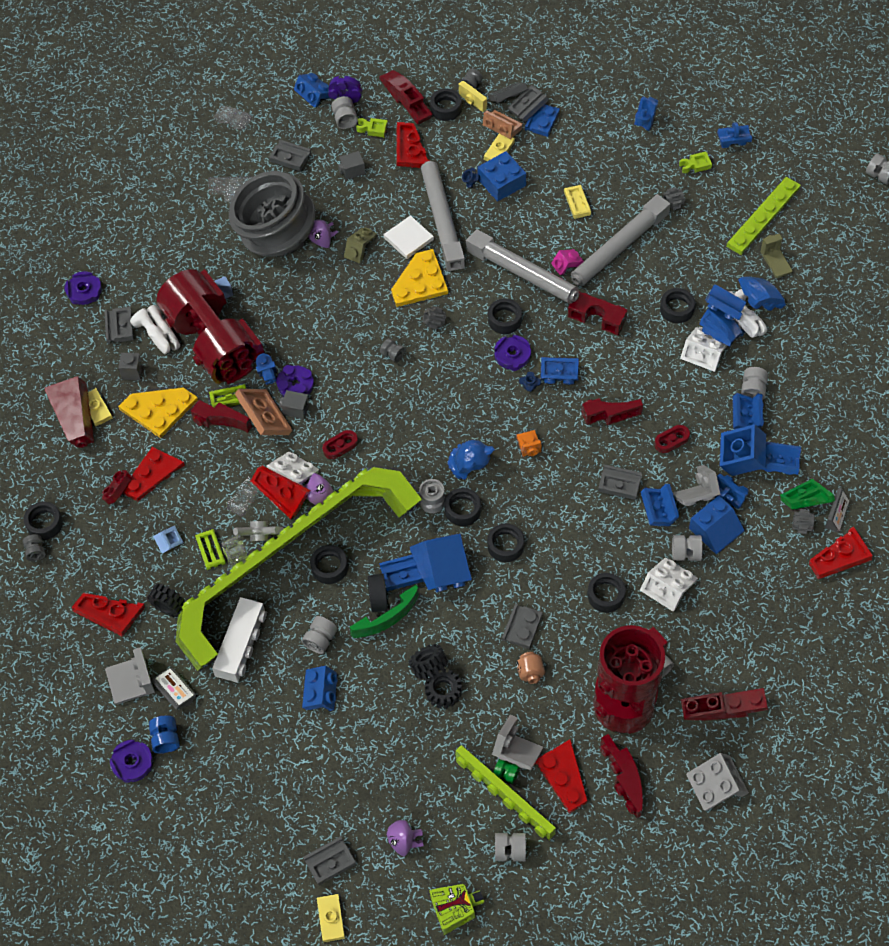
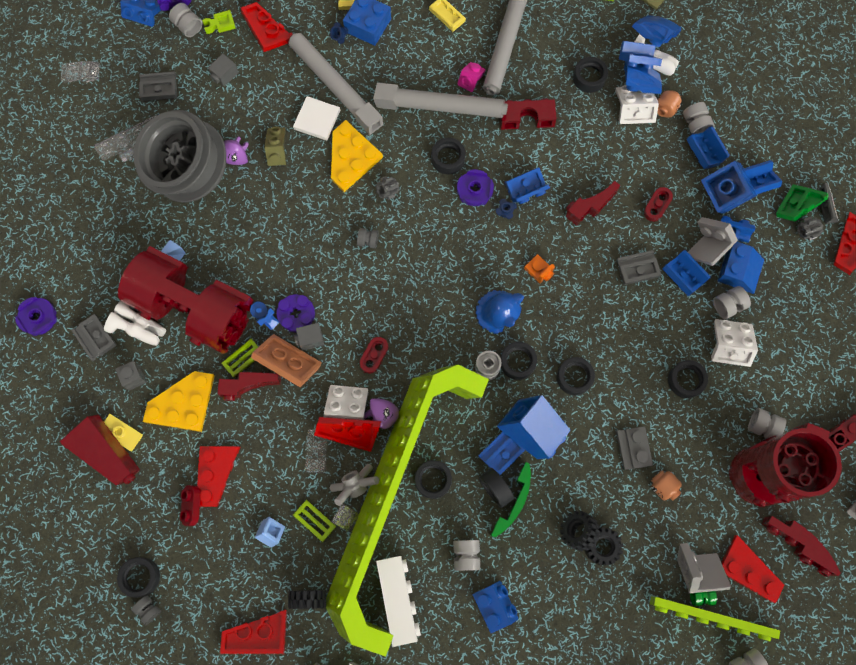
camera: 30 degrees left, 15 degrees up
(734, 360) = (669, 103): none -> nougat head

